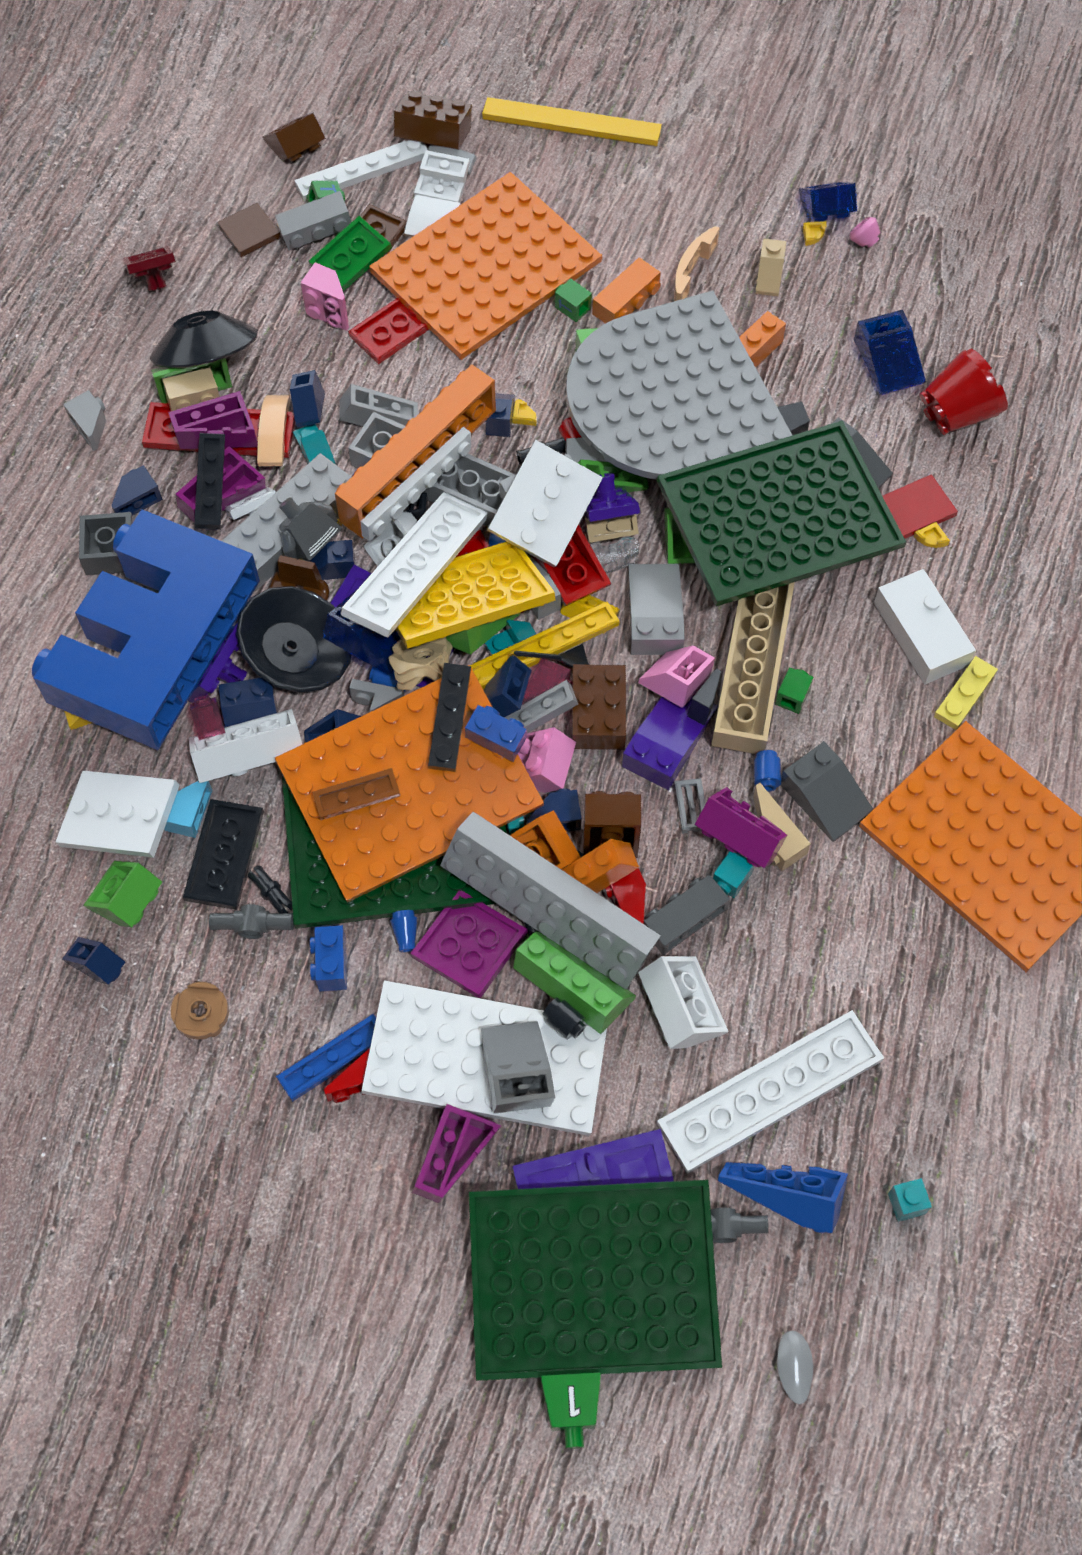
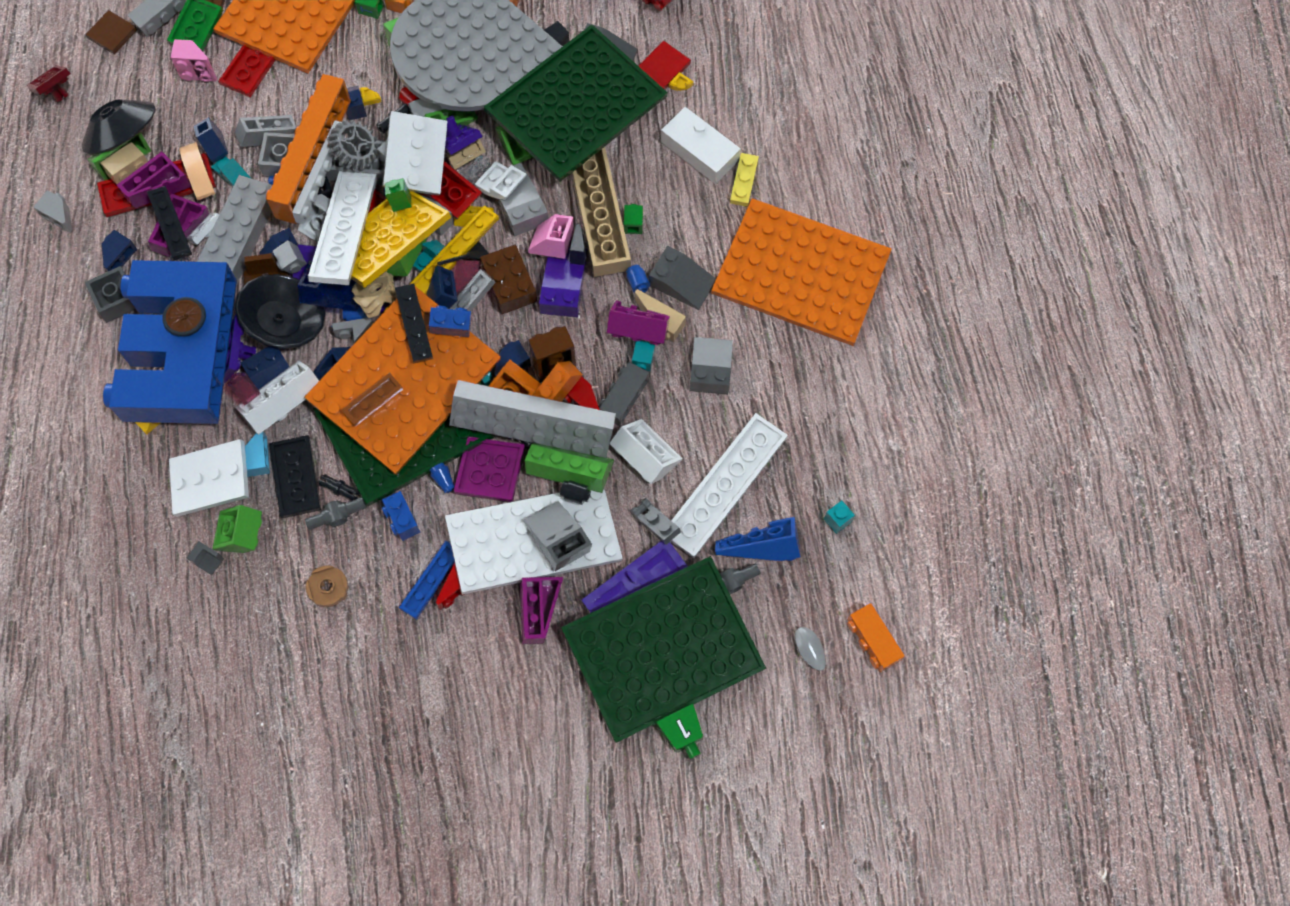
camera: 25 degrees left, 5 degrees up
(69, 912) = (205, 558): none -> dark grey panel
(94, 960) = (238, 582): dark blue slope -> none
(170, 601) = (184, 316): none -> reddish brown wheel
(307, 528) = (254, 231): dark grey torso -> none
(335, 576) = (289, 257): none -> light grey brick
(483, 457) = (348, 150): none -> light grey gear
(501, 547) = (398, 194): none -> green brick
(547, 758) = (489, 326): bright pink slope -> none
(641, 577) = (500, 180): none -> white slope
(655, 1102) = (655, 521): none -> dark grey plate
(680, 803) = (599, 337): light grey tile -> none
(818, 922) = (711, 365): none -> slope
(891, 1391) = (875, 638): none -> orange brick

